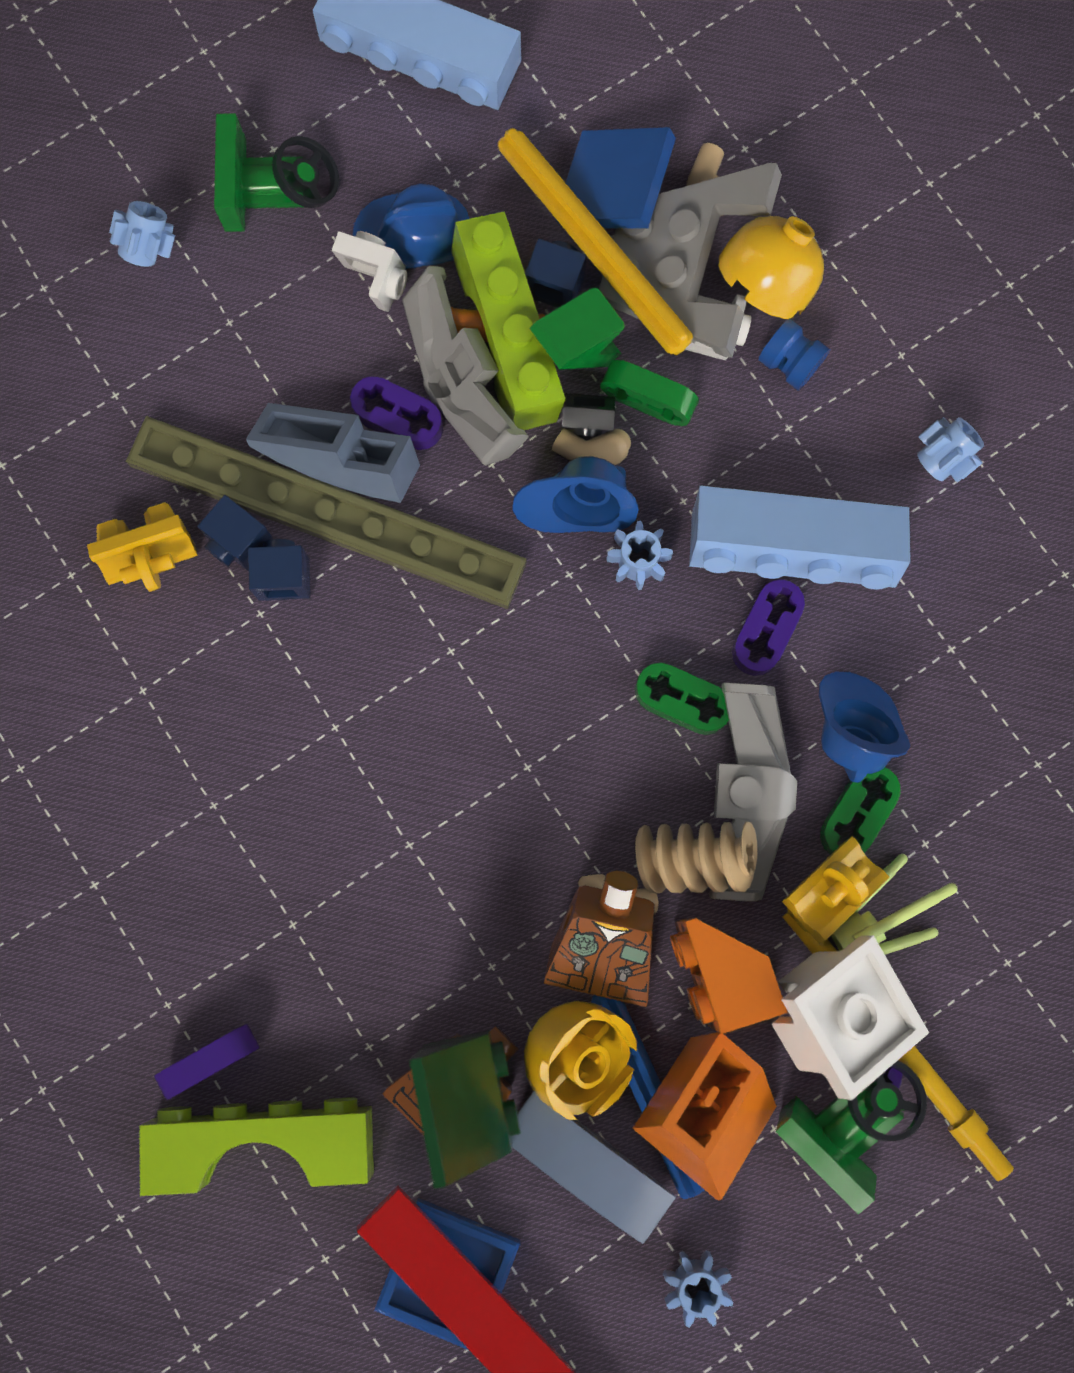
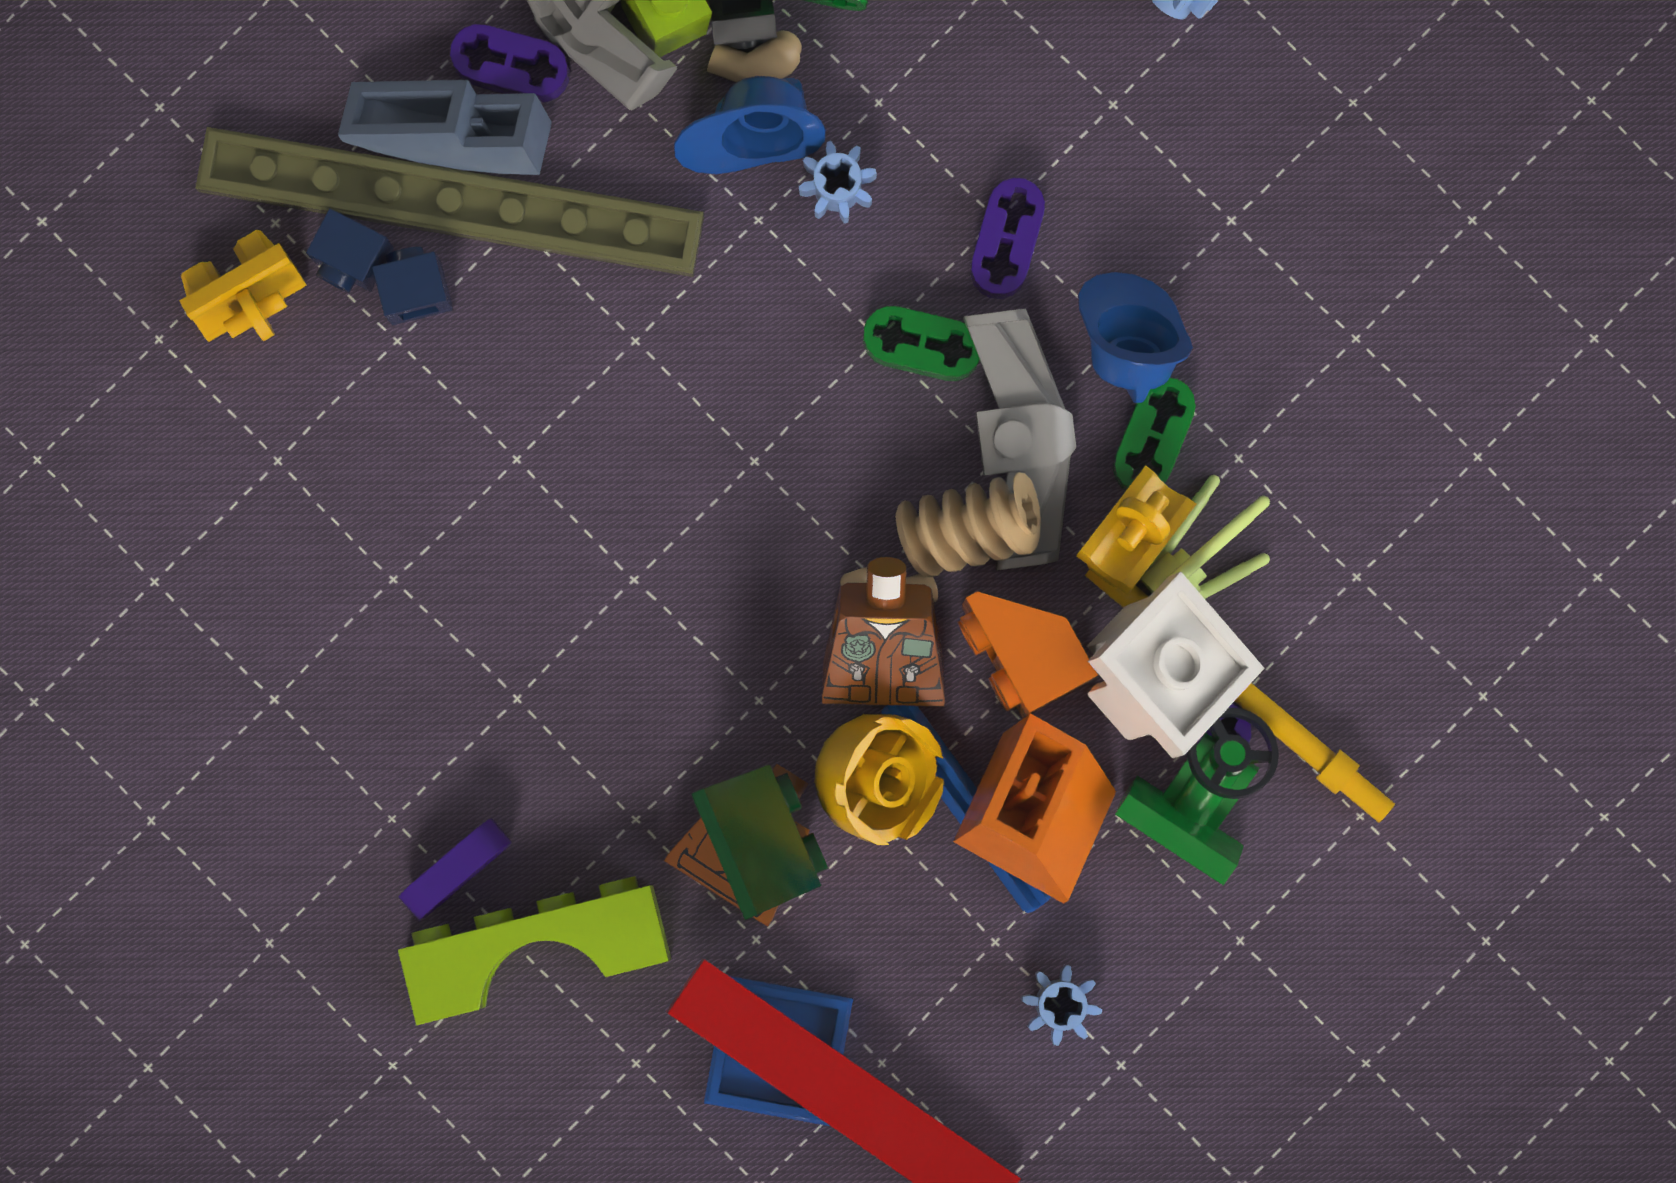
camera: 10 degrees left, 5 degrees up
(591, 1169) = (916, 897): sand blue slope -> none
(799, 537) = (1022, 124): light blue brick -> none

